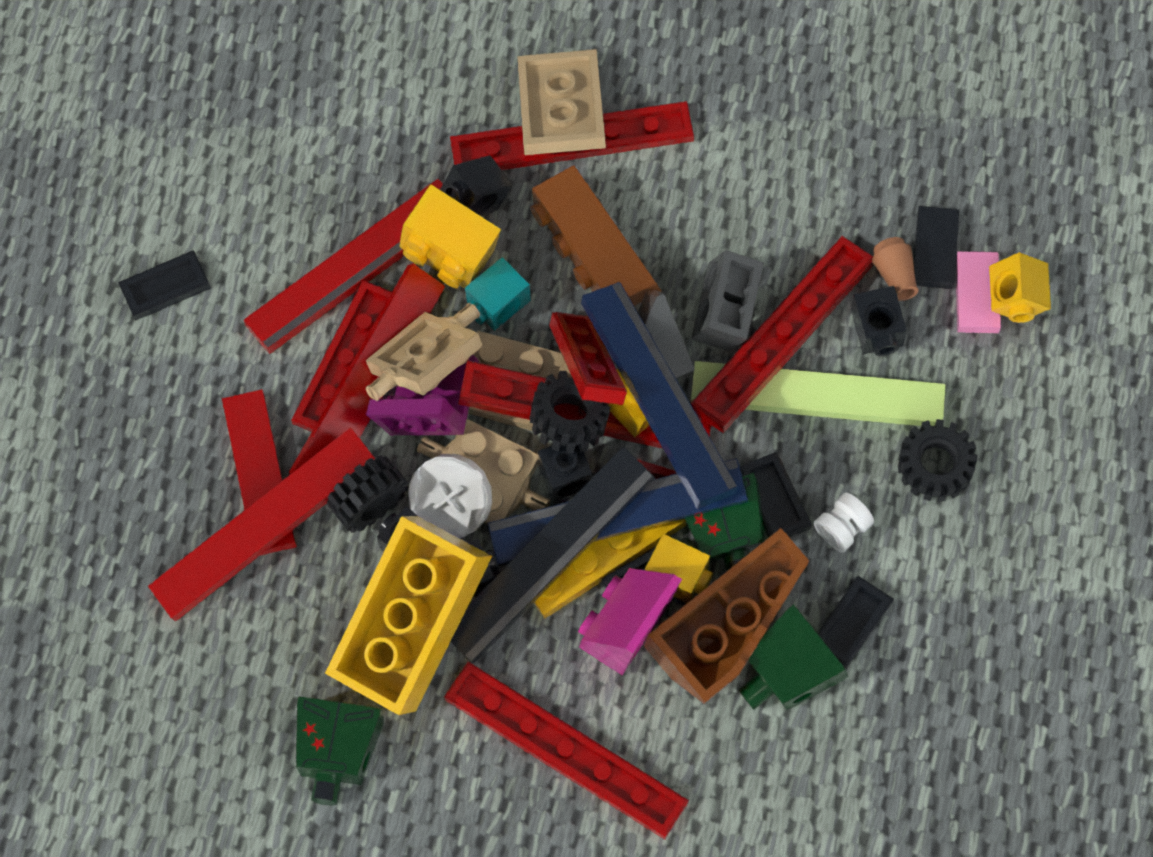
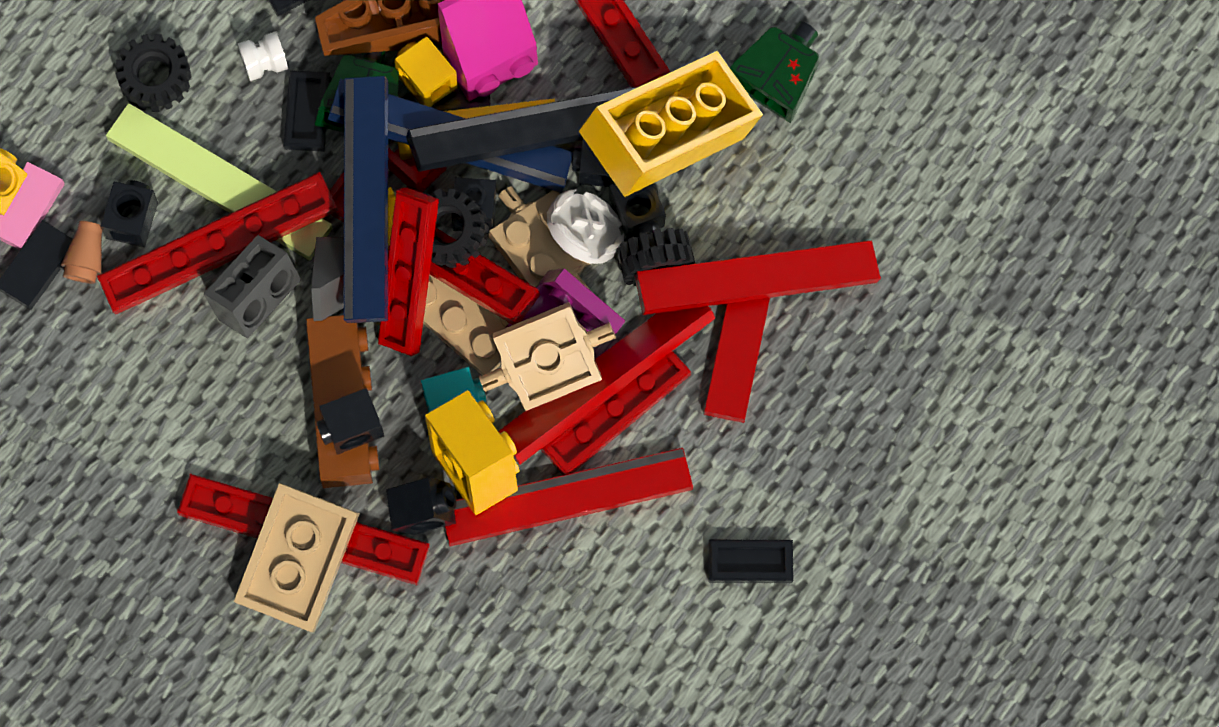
camera: 160 degrees left, 5 degrees up
(568, 208) = (349, 422): none -> black brick

